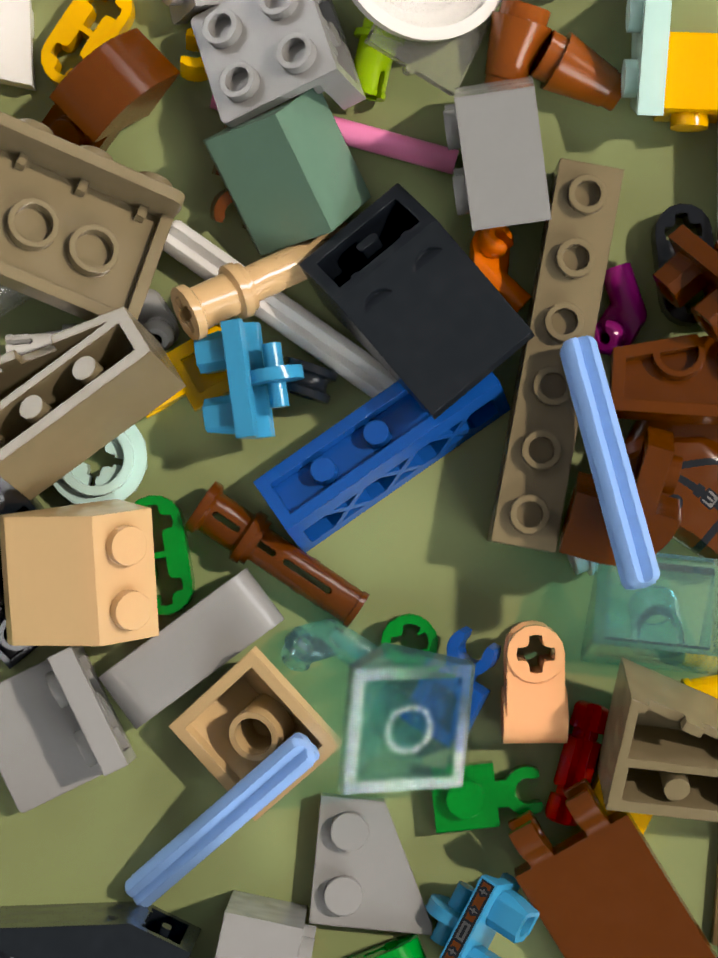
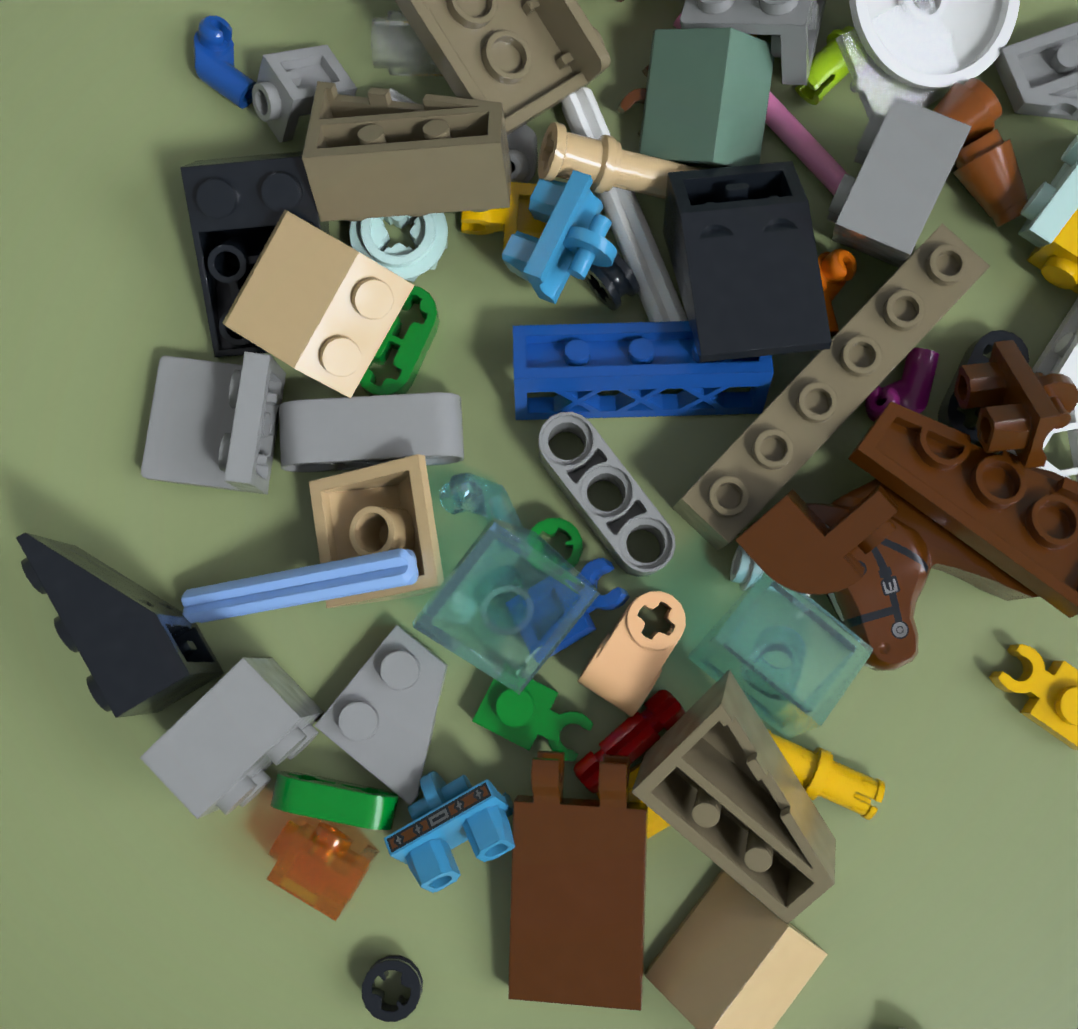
camera: 25 degrees right, 5 degrees down
(341, 602) = (471, 378): reddish brown pin -> none
(451, 591) = (601, 464): none -> light grey beam
(609, 463) = (830, 491): light blue axle -> none

